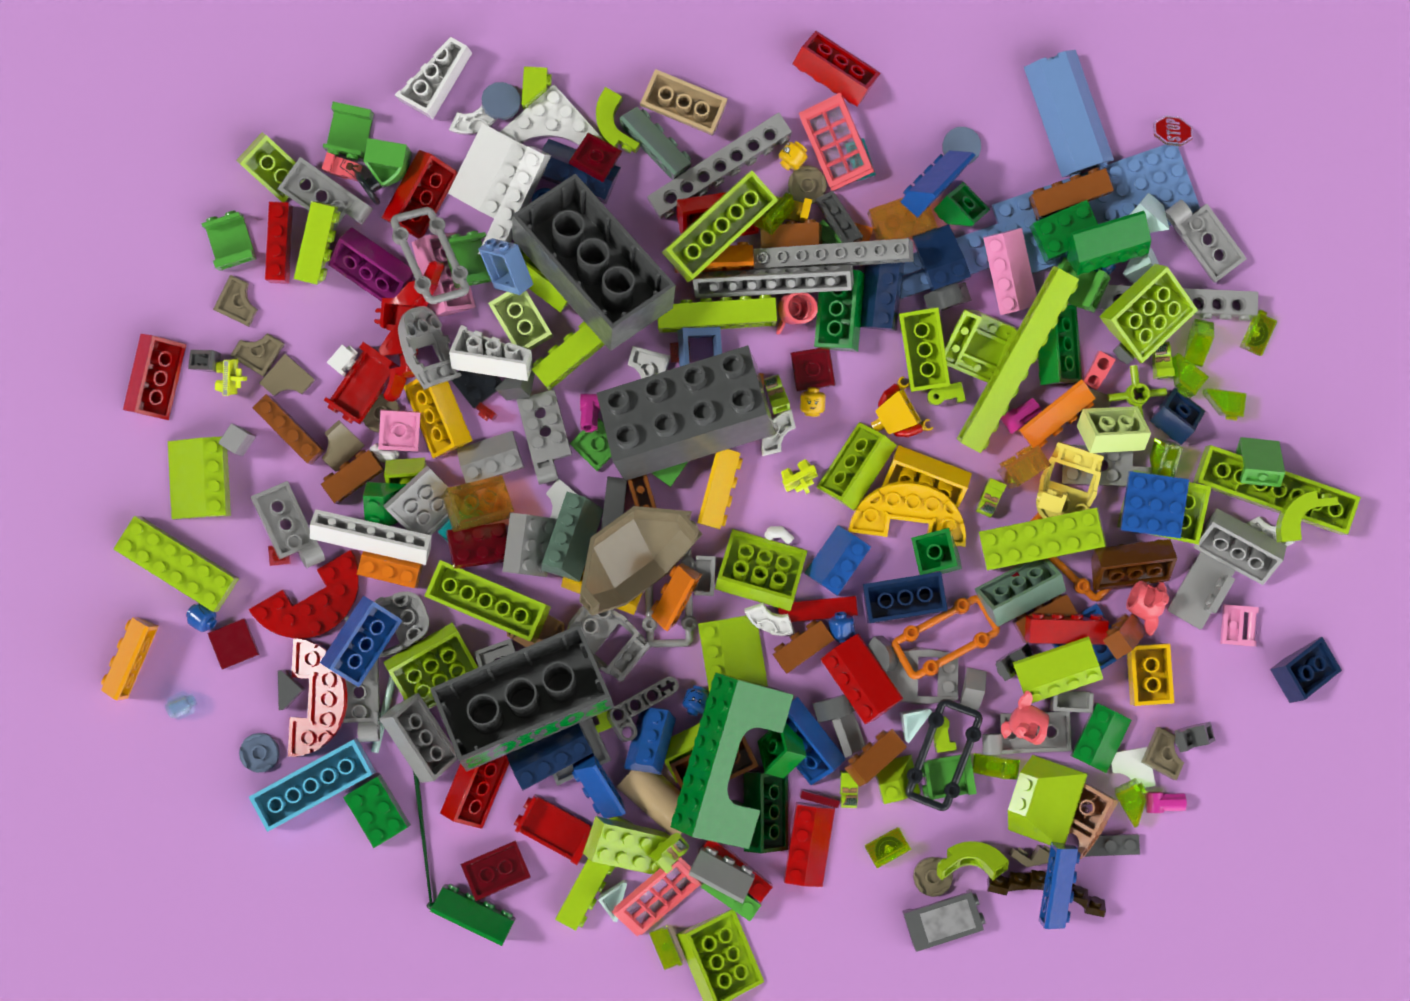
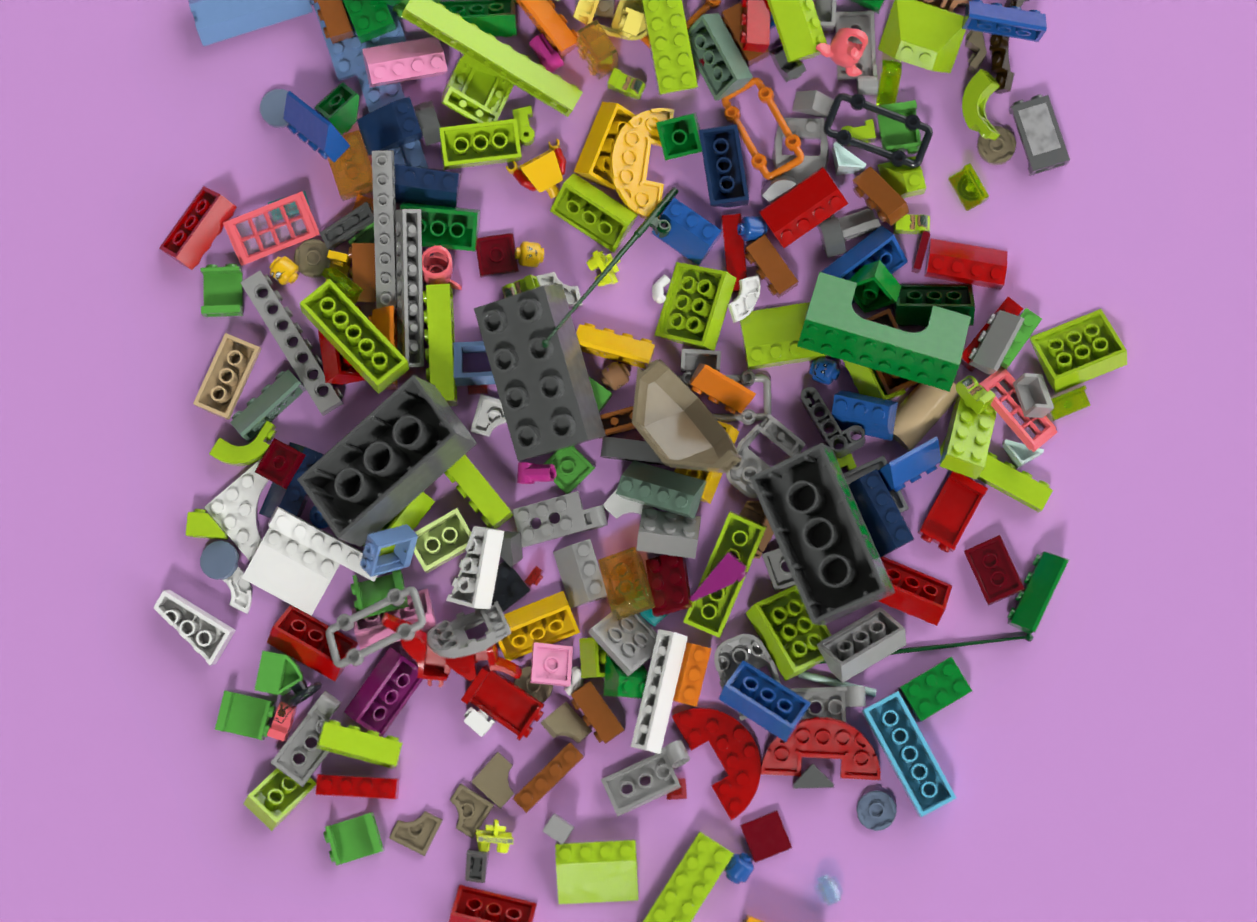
camera: 85 degrees left, 5 degrees down
(481, 598) = (723, 575): none -> magenta slope
(671, 912) = (1033, 395): none -> light grey panel
(689, 490) = (615, 376): none -> medium nougat head
(772, 95) = (222, 291): none -> bright green panel
(840, 533) = (659, 226): none -> dark green piece

